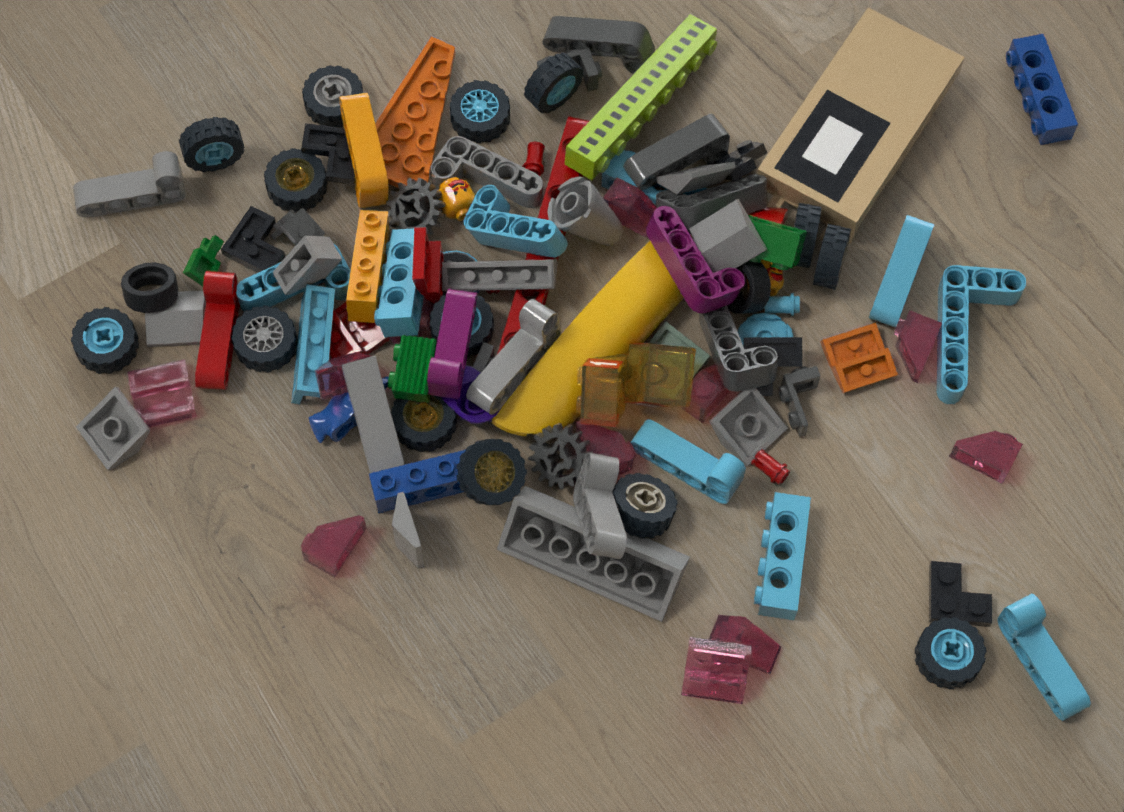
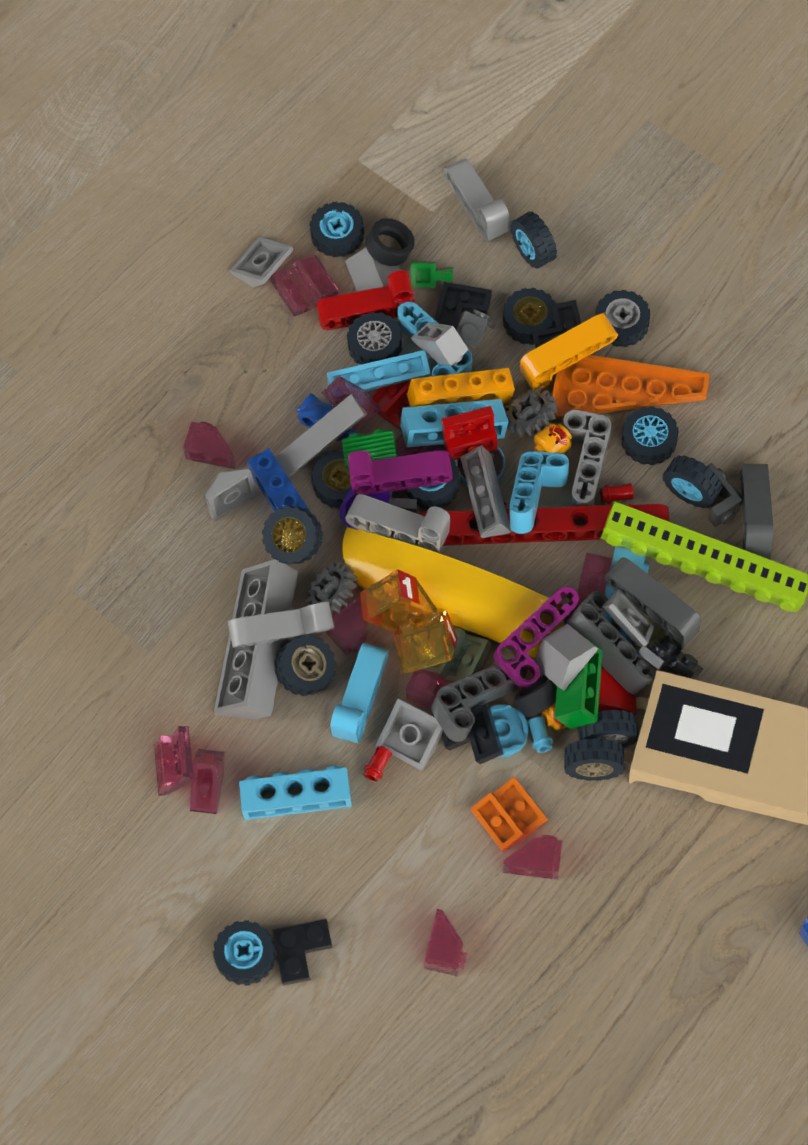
camera: 80 degrees right, 0 degrees up
(584, 213) = (562, 542): light grey cone -> none
(798, 381) = (468, 767): dark grey bracket -> none
(901, 271) = (608, 825): medium azure beam -> none
(957, 321) = (573, 893): medium azure beam -> none
(1041, 657) = (259, 1032): medium azure beam -> none

